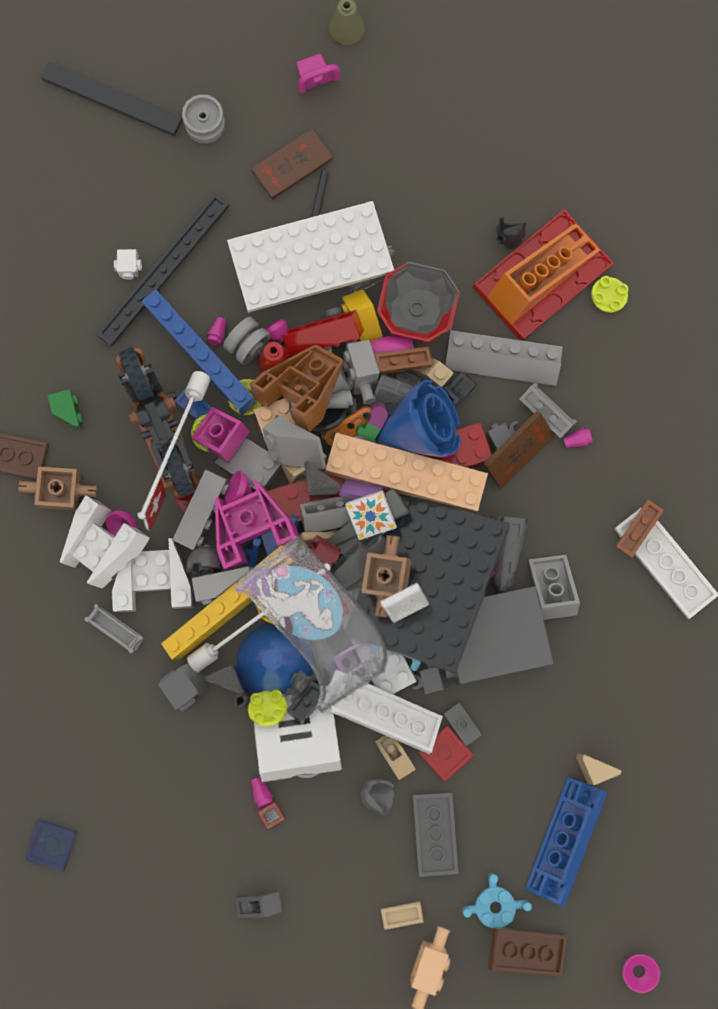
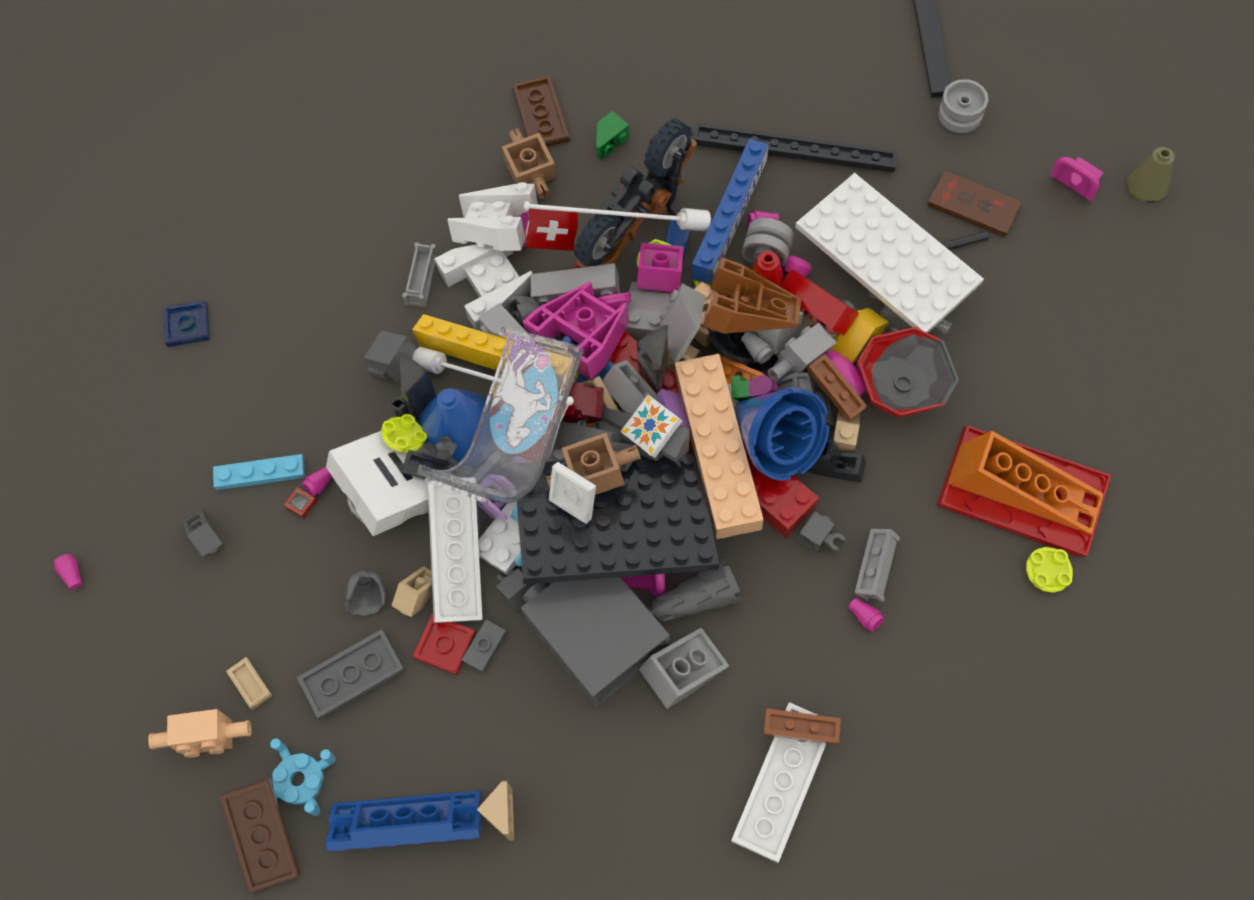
camera: 70 degrees right, 15 degrees down
(127, 264) = (780, 116): white brick -> none
(226, 838) = (259, 472): none -> medium azure plate
(503, 358) = (906, 494): light grey slope -> none
(510, 234) = (1045, 434): black helmet -> none
(518, 449) = (814, 553): reddish brown tile -> none

